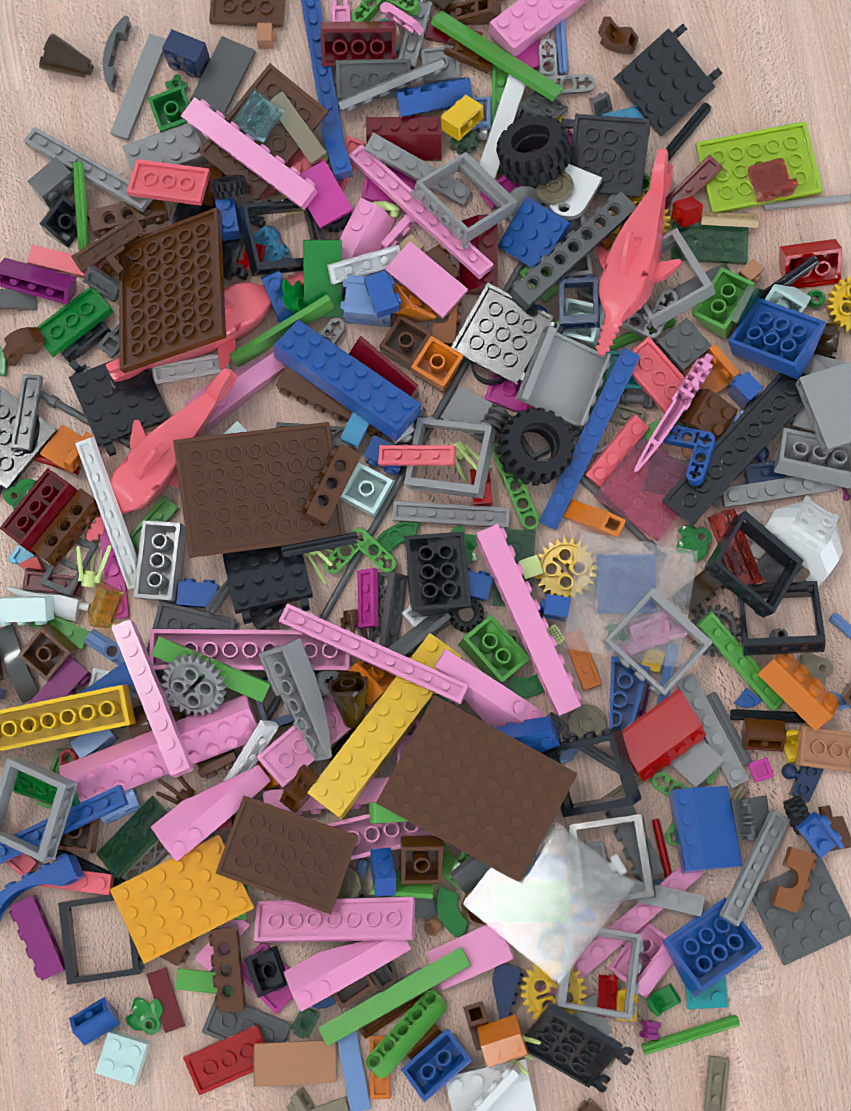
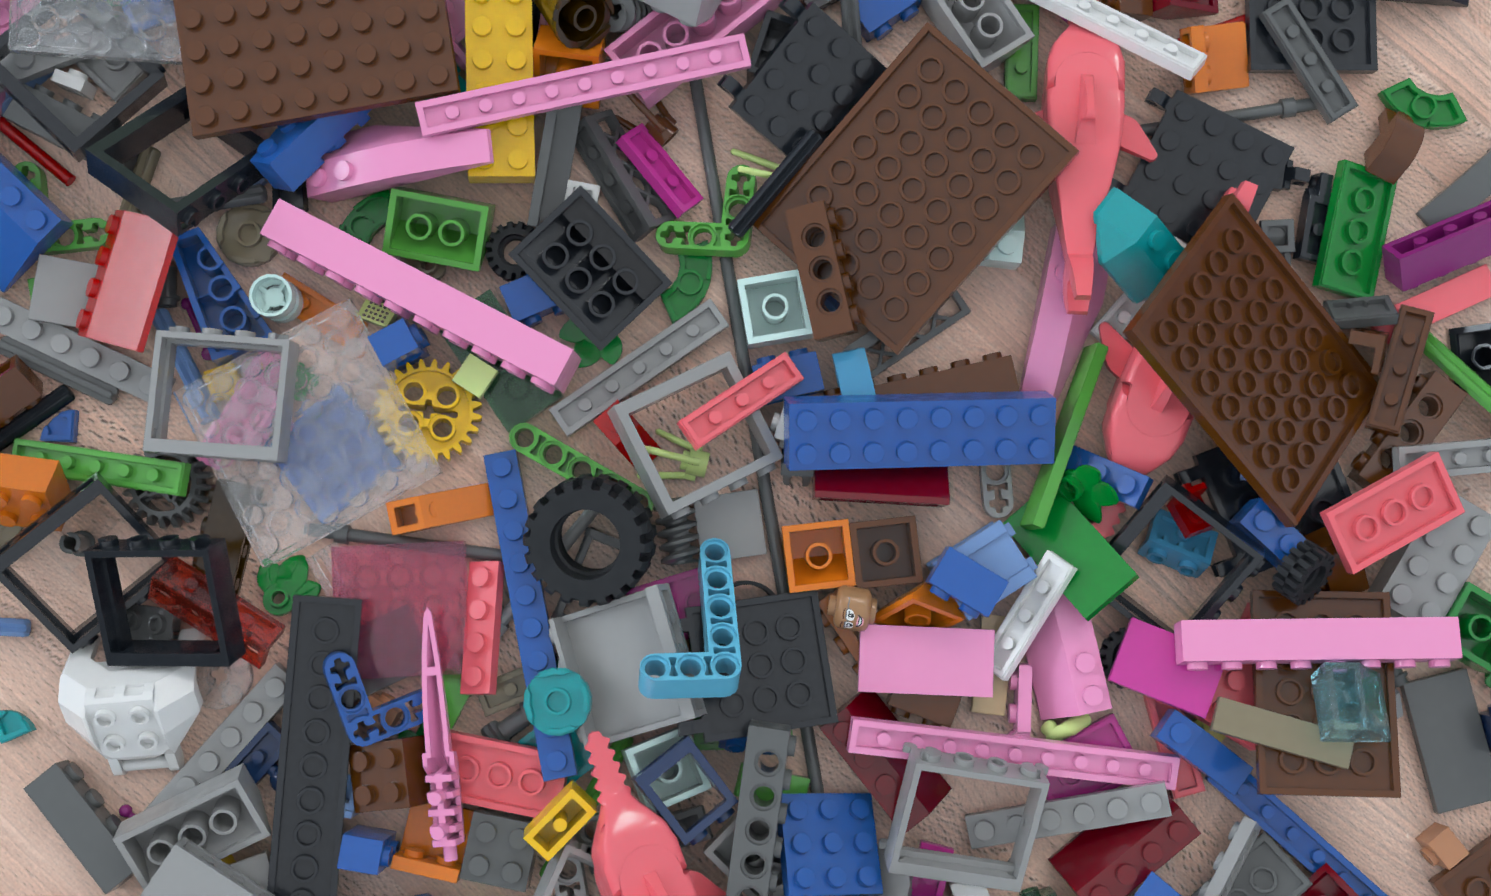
camera: 135 degrees right, 5 degrees up
(182, 382) = (1133, 245): none -> teal wedge
(441, 325) = (852, 608): none -> medium nougat head
(511, 359) = (713, 571): none -> medium azure beam
(597, 675) = (276, 298): none -> light aqua wheel
(606, 384) = (557, 701): none -> teal tile
(645, 332) = (560, 820): none -> yellow brick

